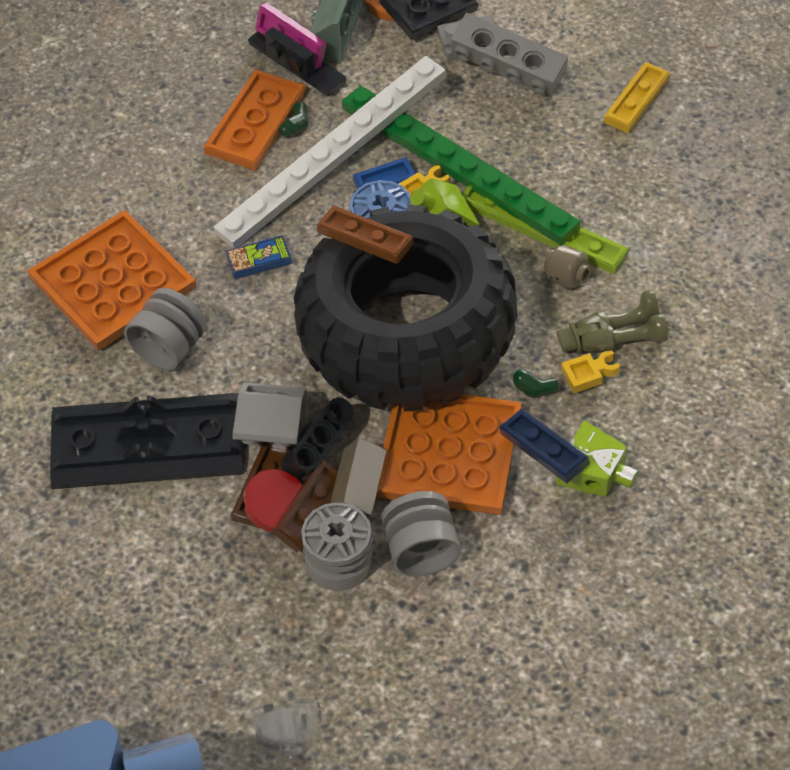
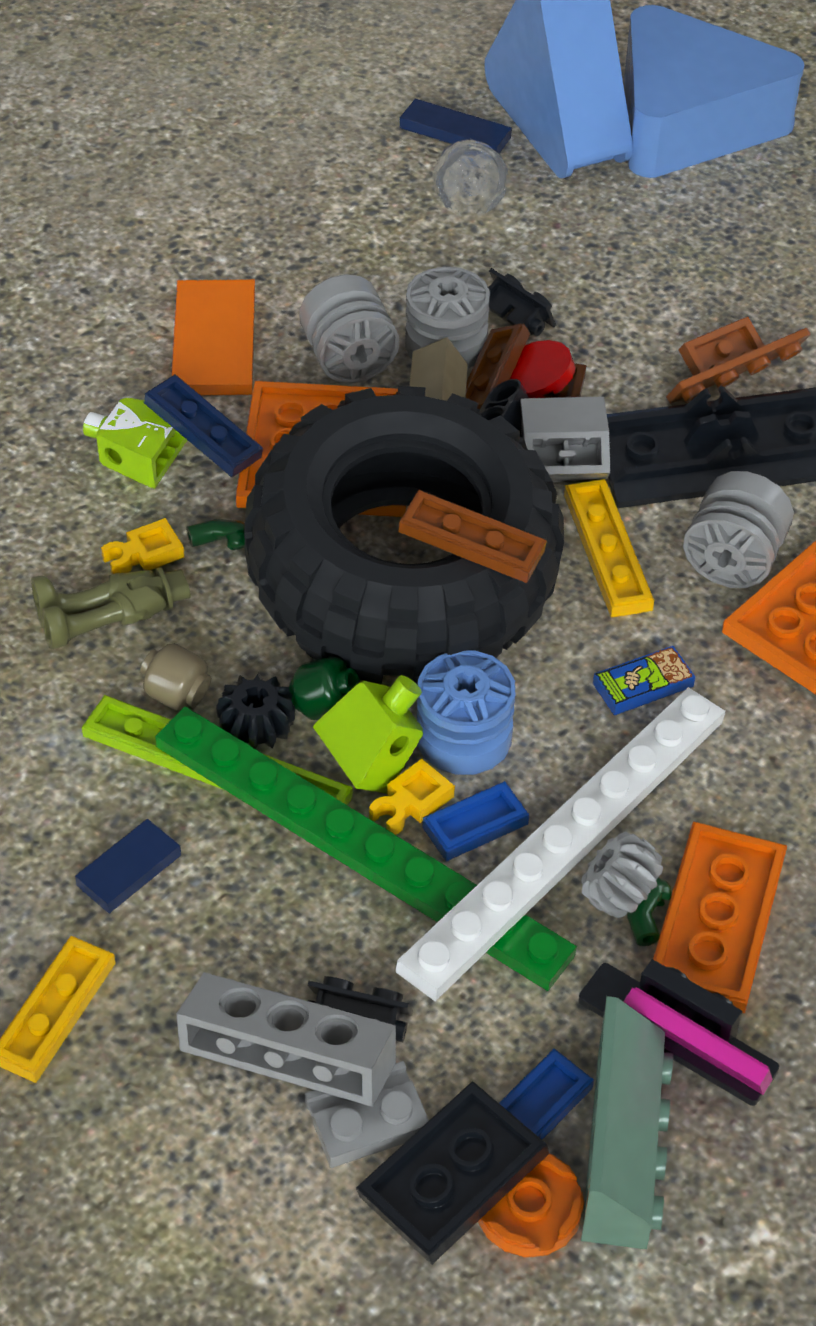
camera: 170 degrees right, 5 degrees down
(111, 504) = (726, 353): none -> dark orange bracket
(254, 345) = (608, 548): none -> yellow tile
(264, 575) = (528, 308): none -> black hinge
(308, 120) = (622, 874): none -> light grey gear
(376, 38) = (548, 1093): none -> blue tile
(468, 81) = (381, 1005): none -> black hinge
(517, 242) = (256, 710): none -> black gear
(532, 576) = (215, 336): none -> orange tile
(596, 166) = (128, 865): none -> dark blue tile

